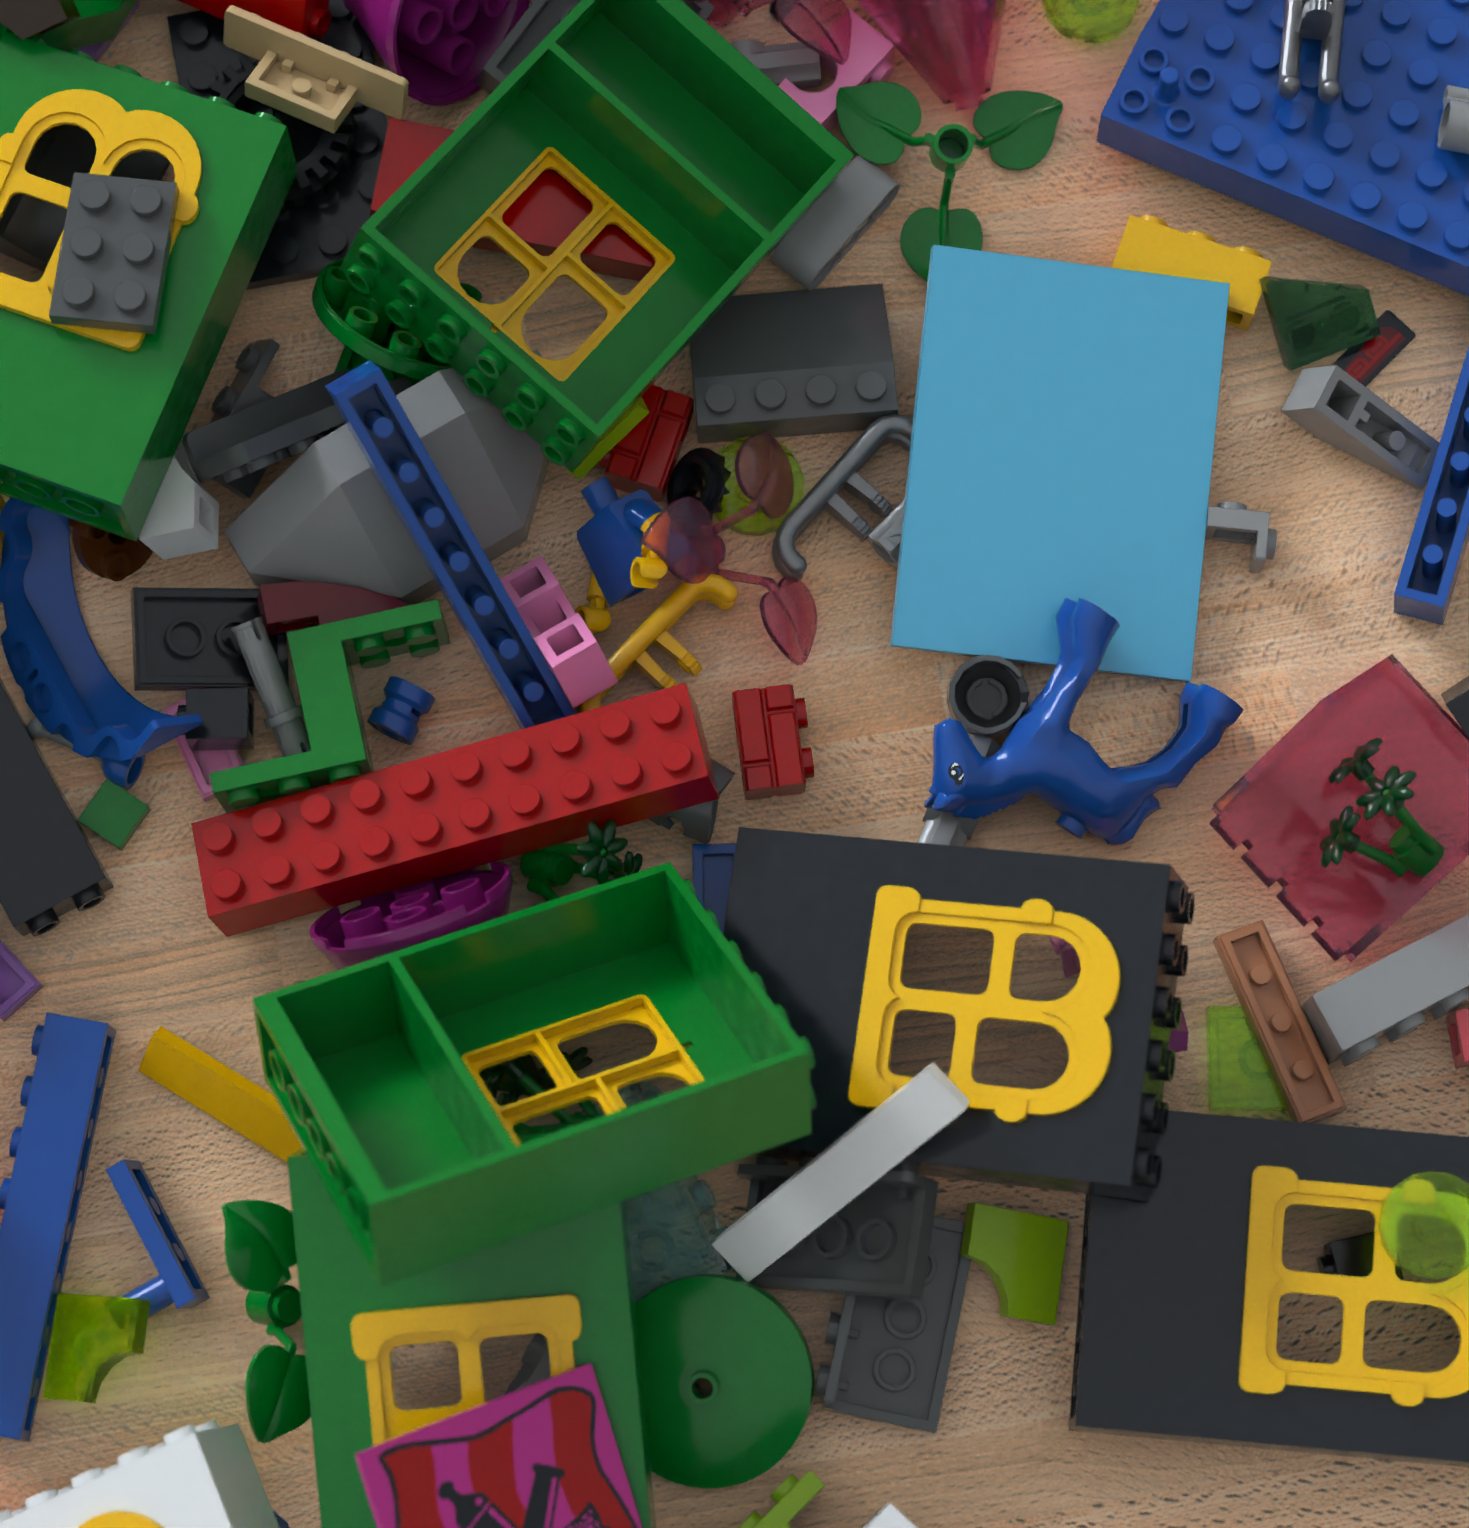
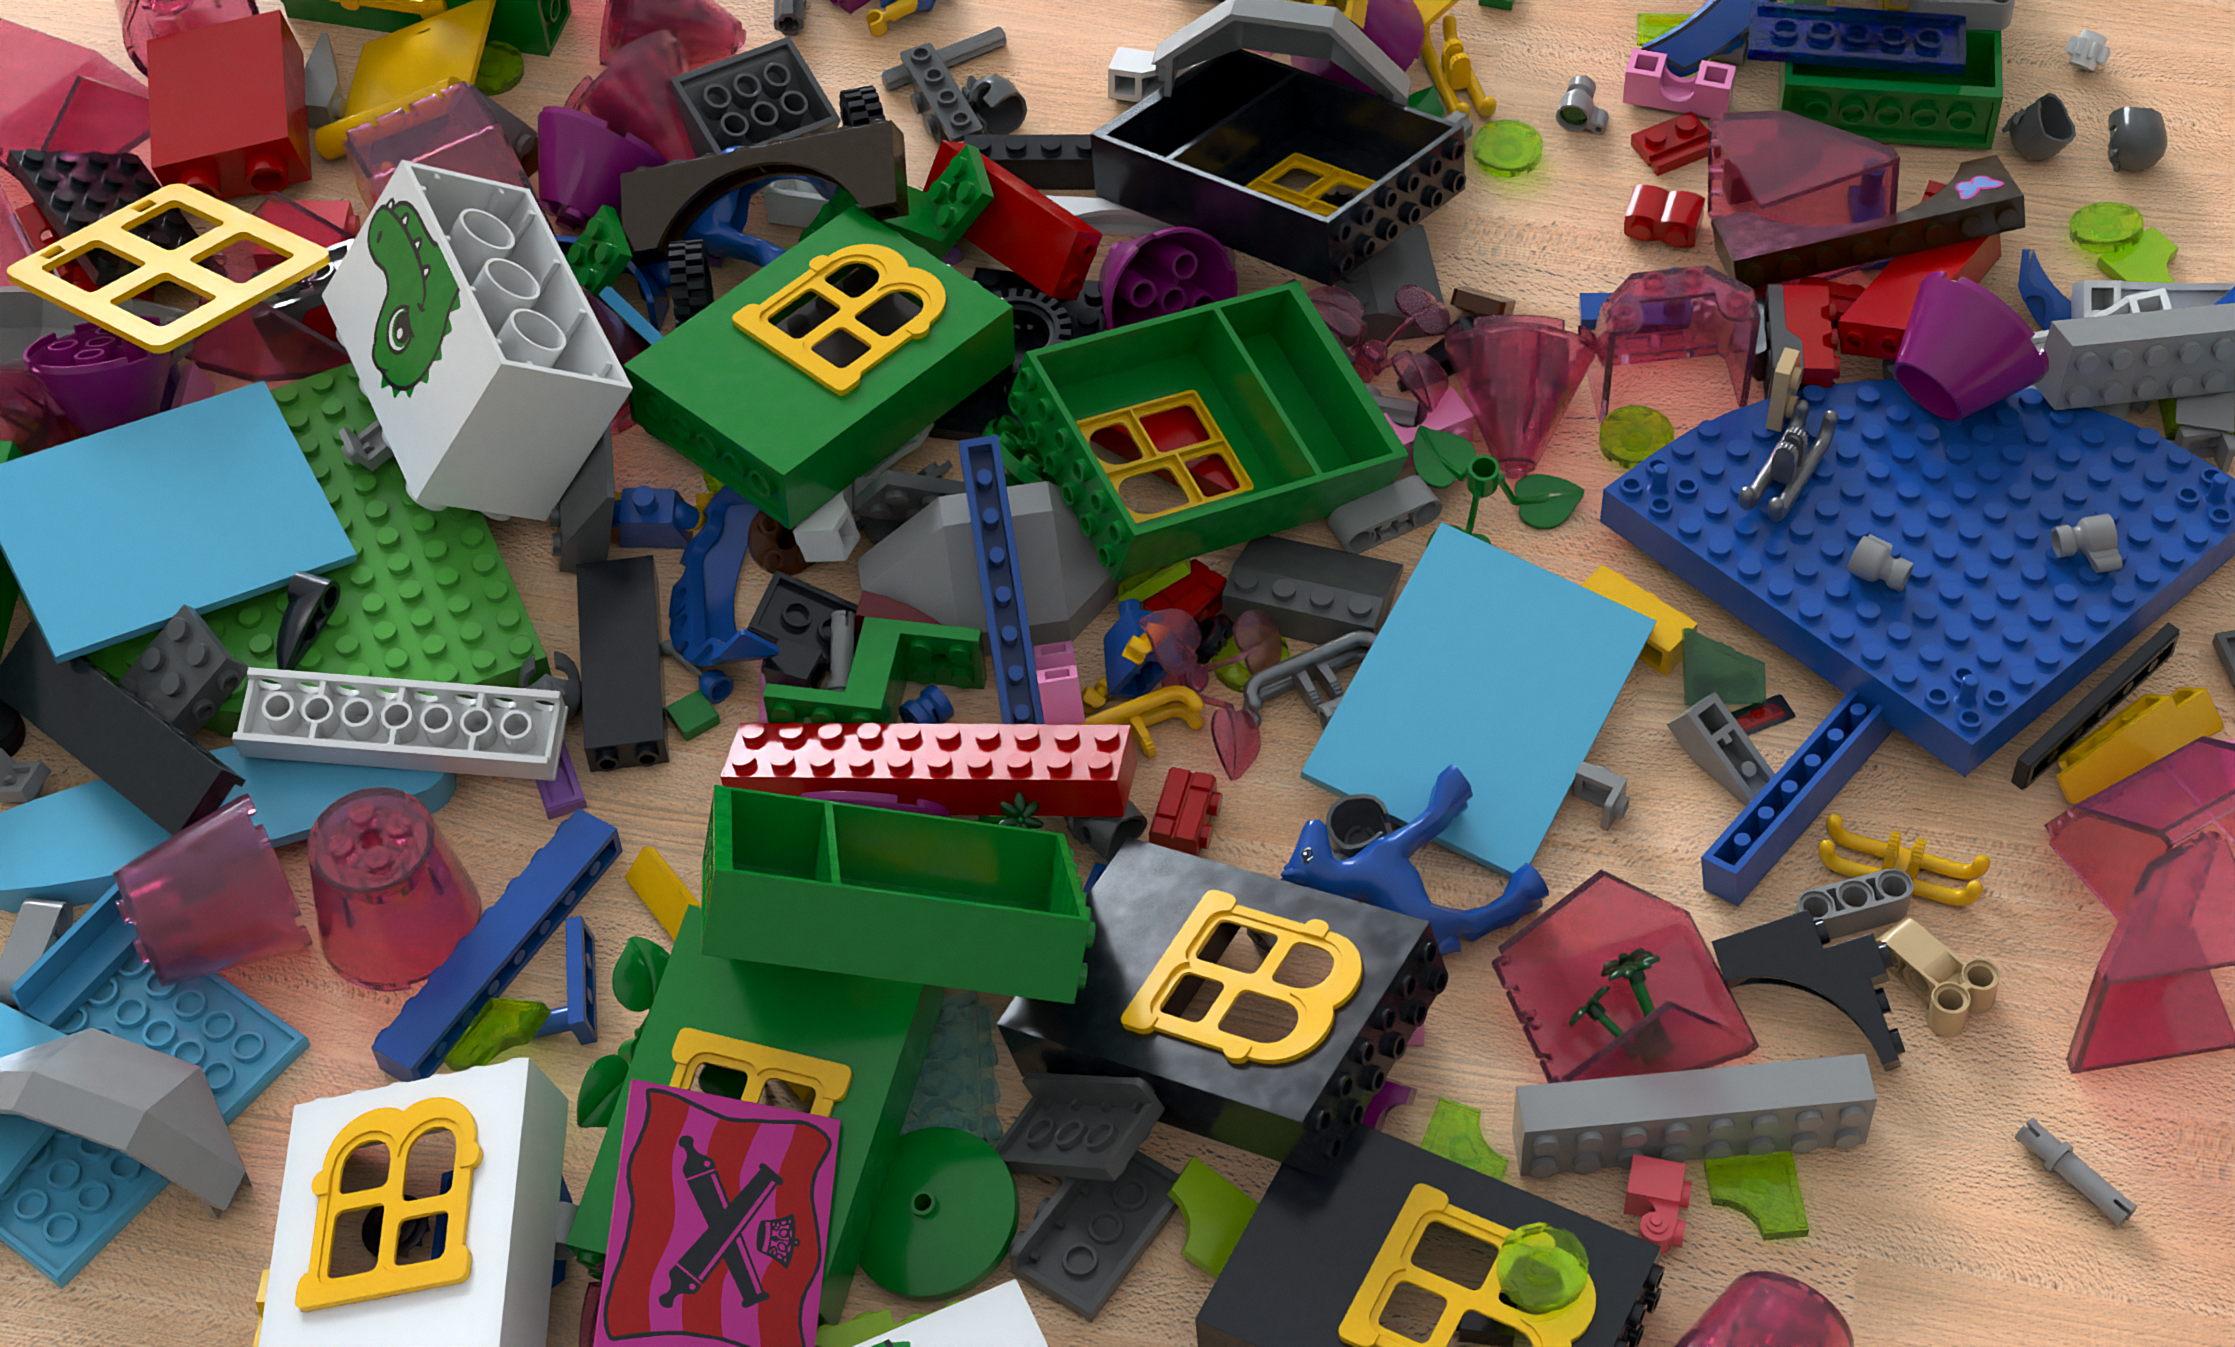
camera: 25 degrees right, 25 degrees down
(114, 253) = (856, 334): dark grey plate -> none
(309, 76) = (1048, 302): tan bracket -> none
(841, 1172) = (1091, 1068): white tile -> none
(1279, 1023) = (1490, 1113): nougat tile -> none

